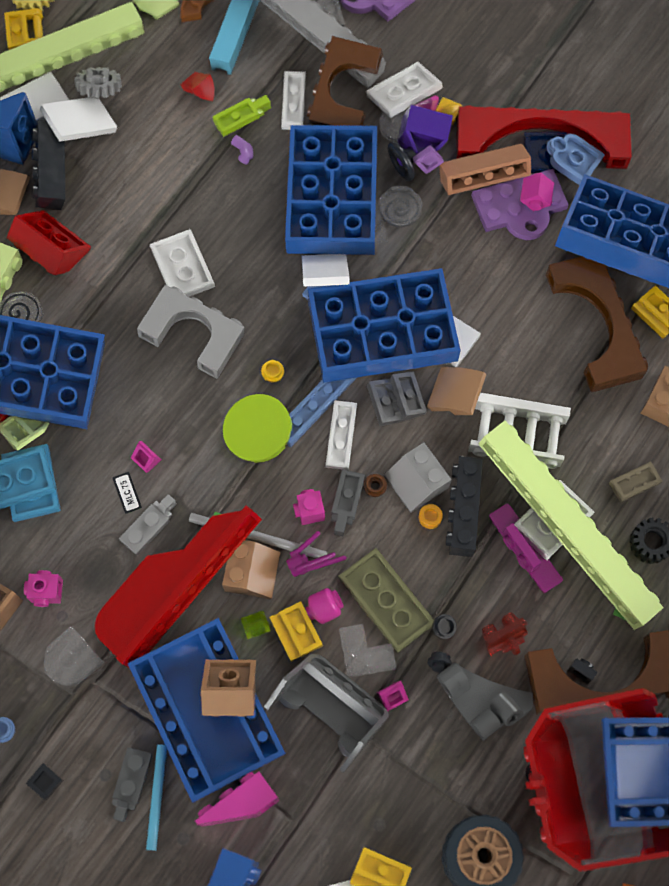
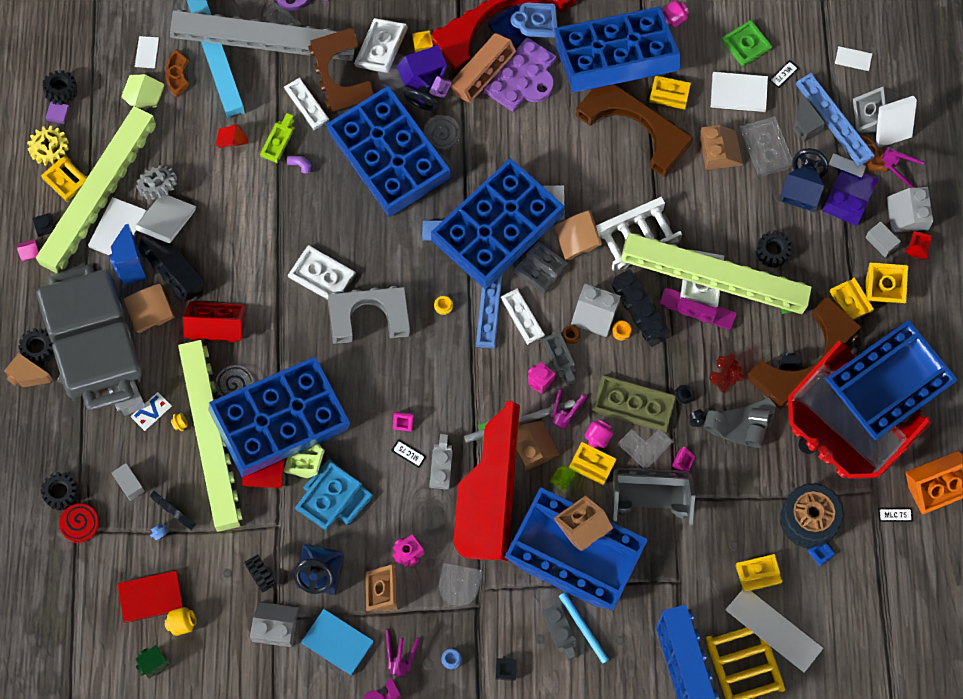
camera: 35 degrees left, 0 degrees up
(245, 802) = (647, 582): dark pink slope -> none
(257, 428) = (464, 350): lime tile -> none
(325, 270) = (429, 211): white tile -> none
(430, 103) = (406, 47): dark pink slope -> none
(537, 191) = (532, 61): dark pink brick -> none
(635, 482) = (736, 218): dark tan plate -> none

